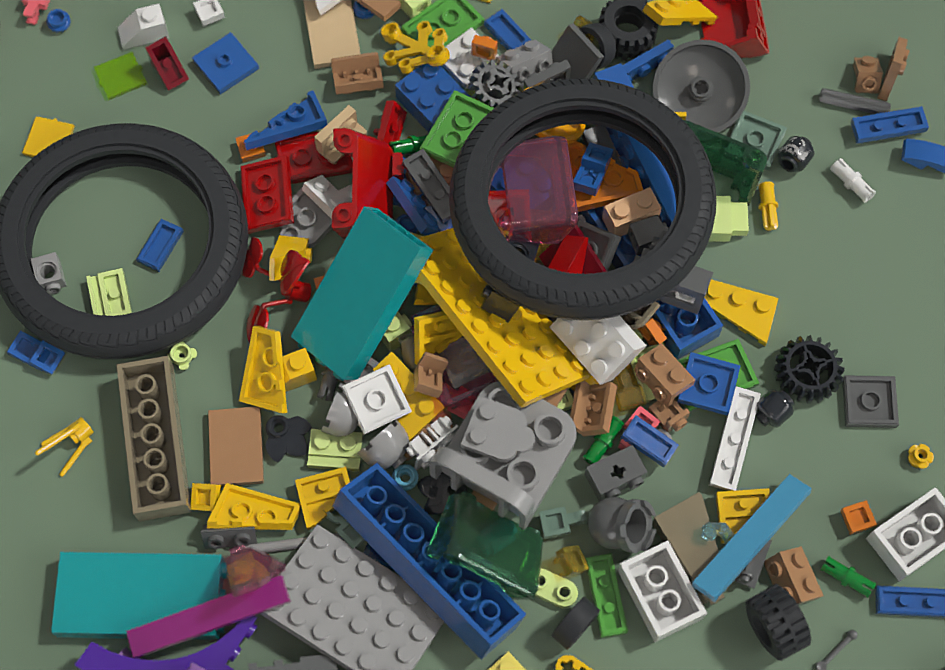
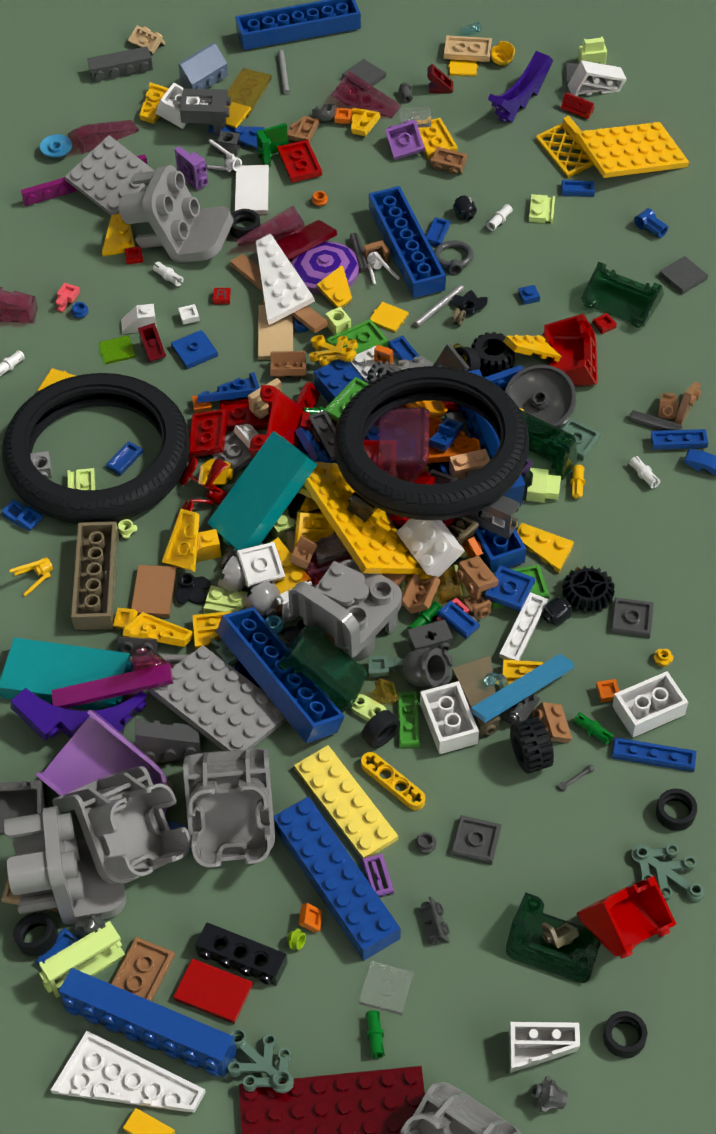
camera: 10 degrees right, 15 degrees down
(795, 154) = (604, 449): black head -> none

